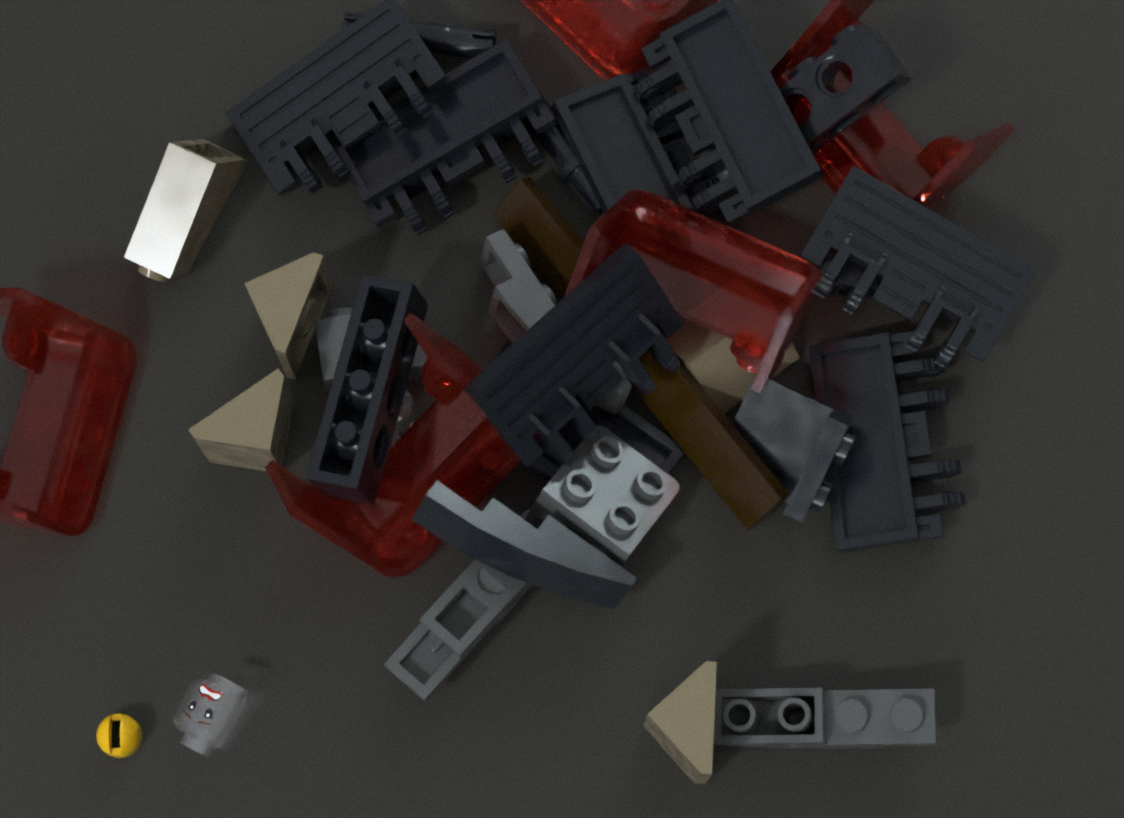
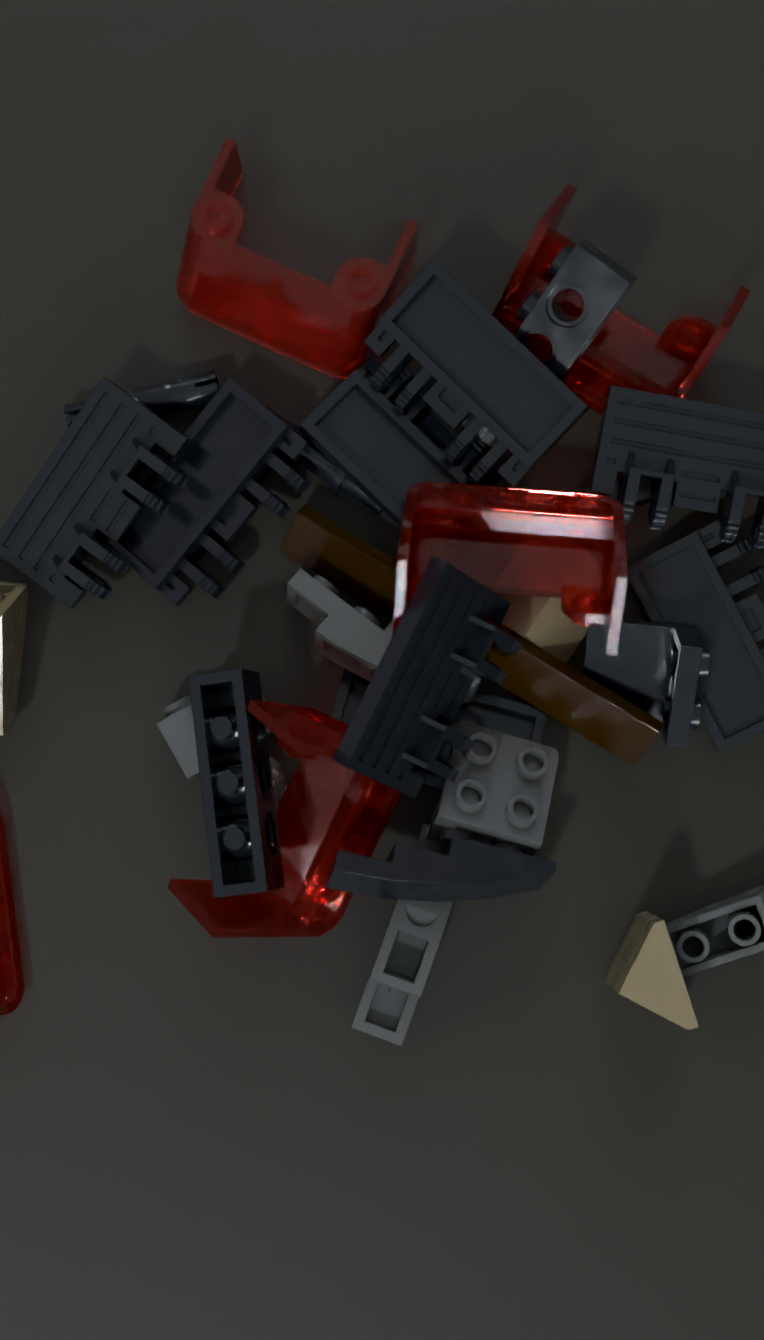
camera: 20 degrees left, 10 degrees up
(129, 735) = (140, 1172): yellow hinge -> none
(212, 714) = (210, 1128): clear head -> none
(249, 427) = (141, 851): dark tan slope -> none
(289, 305) = (127, 724): dark tan slope -> none

